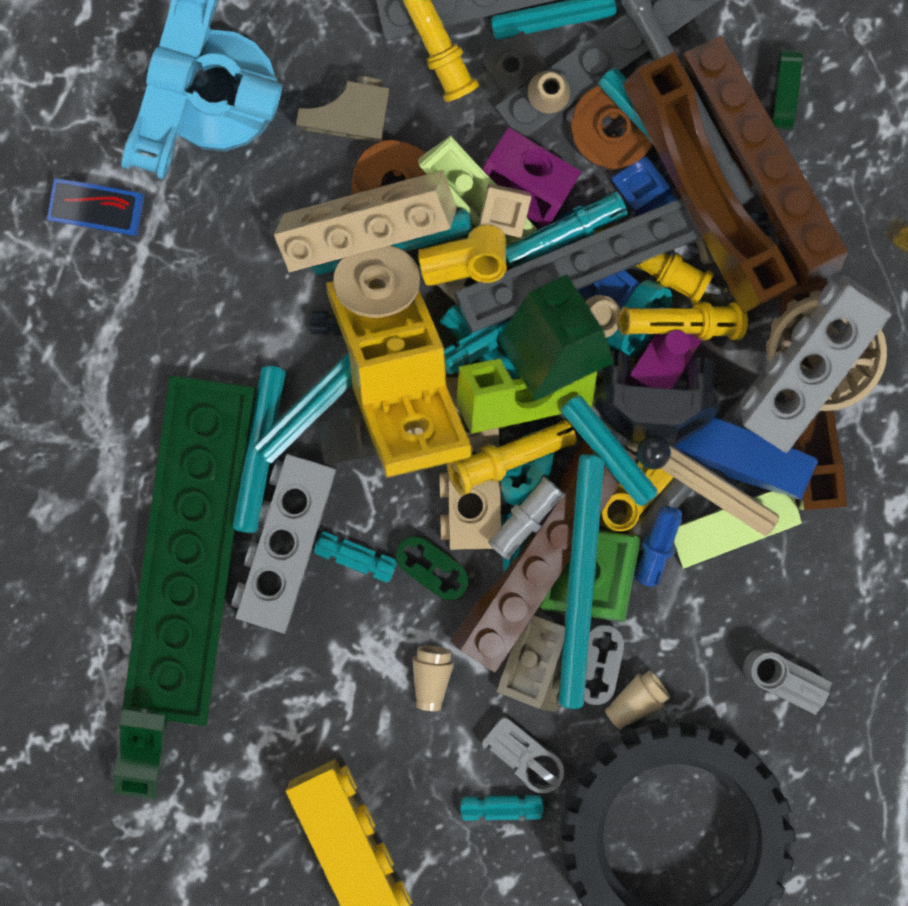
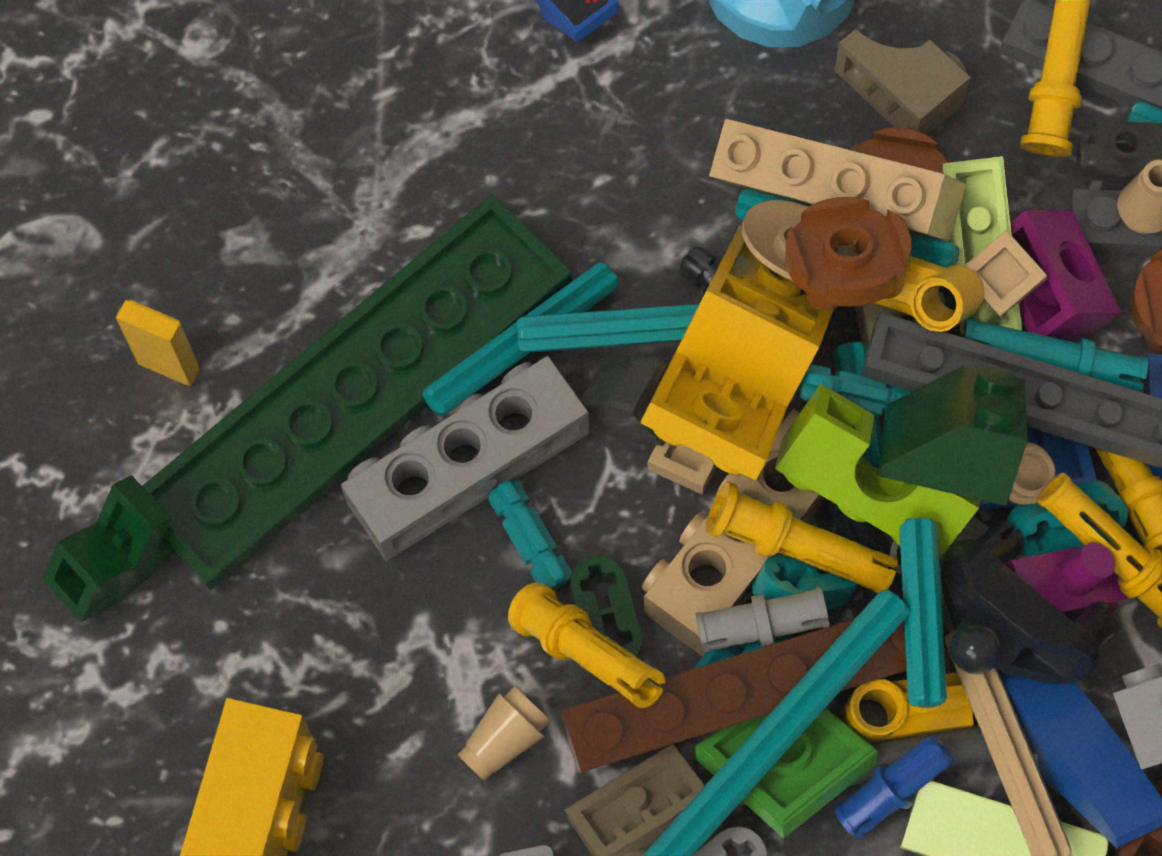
camera: 45 degrees right, 20 degrees down
(63, 619) = (158, 342): none -> yellow tile
(422, 302) = (844, 280): none -> dark orange plate
(426, 601) = (568, 634): none -> yellow pin

